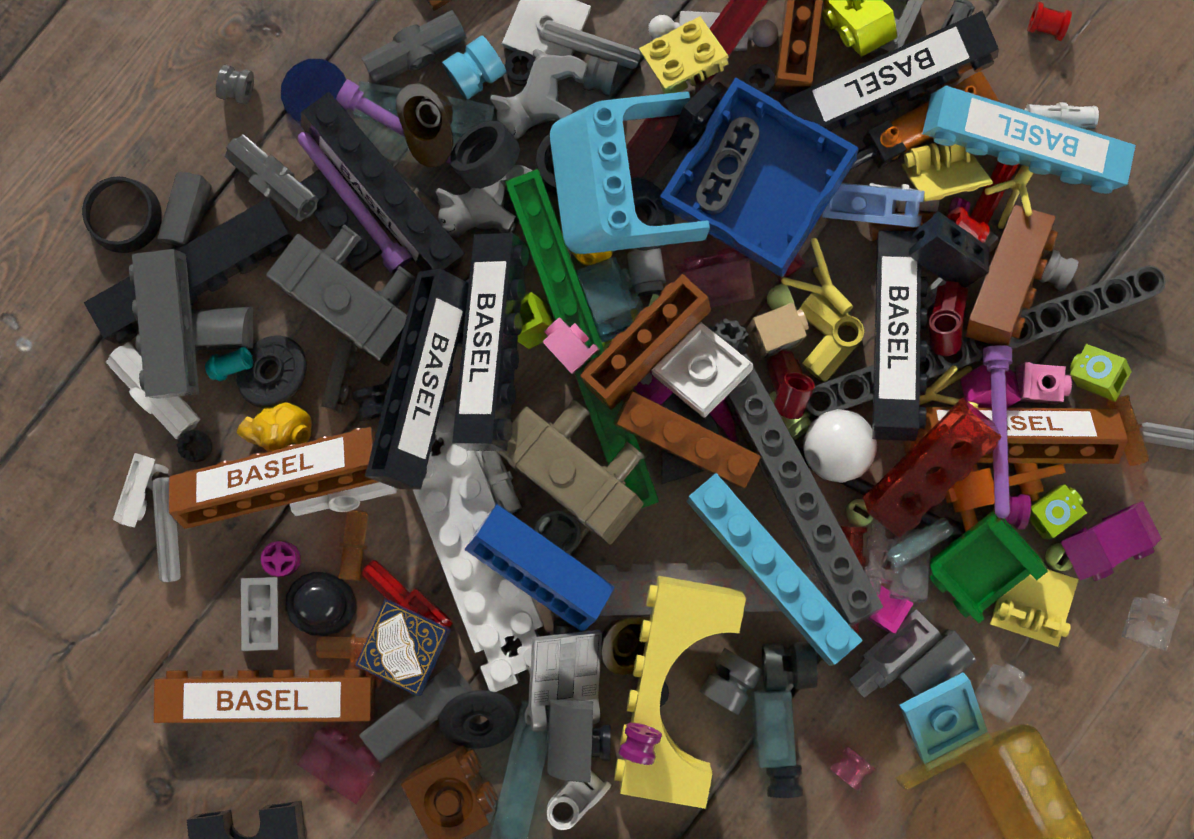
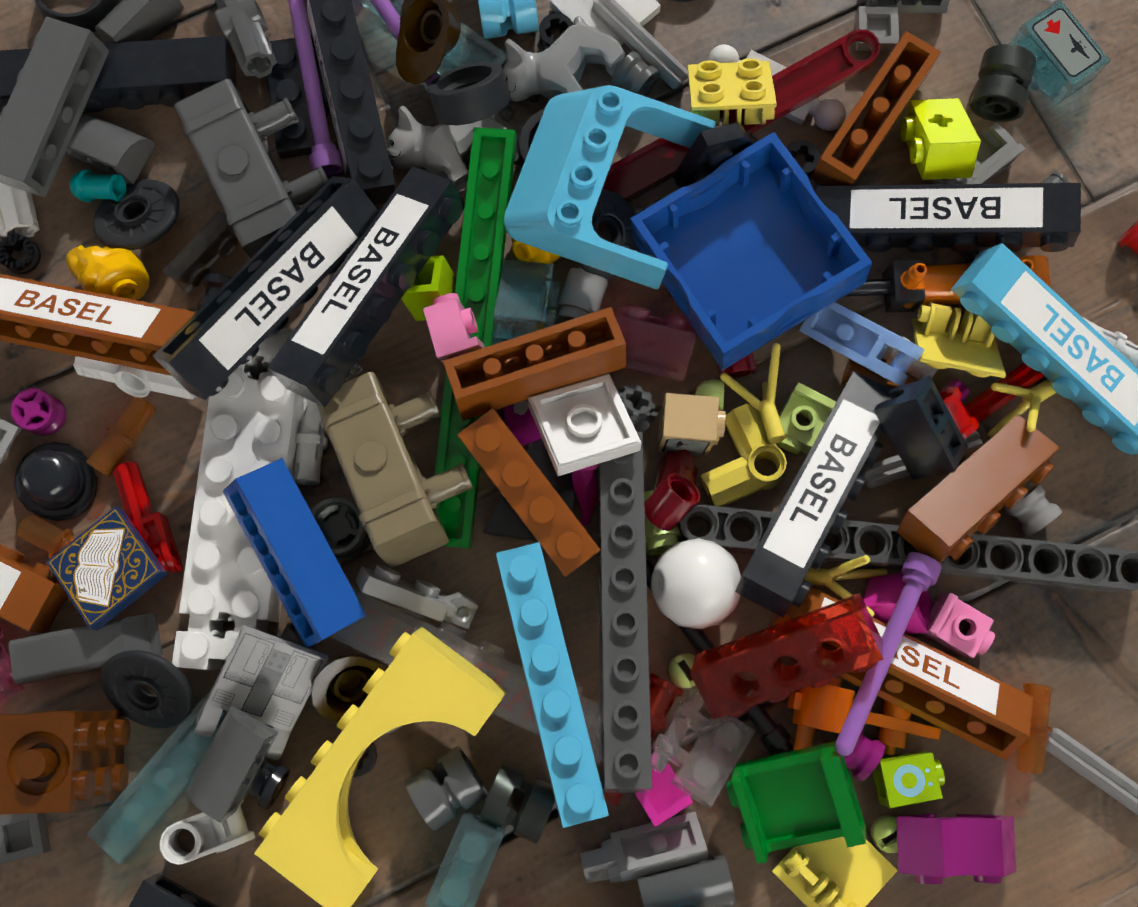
camera: 25 degrees right, 5 degrees down
(640, 743) = (299, 807): magenta wheel -> none
(643, 555) = (419, 598): none -> light grey hinge
(748, 147) = (725, 207): dark grey beam -> none
(863, 270) = (810, 405): none -> yellowish green brick
(920, 542) = (734, 737): clear light blue axle -> none
(948, 318) = (885, 501): dark red piece -> none
(1100, 372) = (1031, 645): lime brick -> none

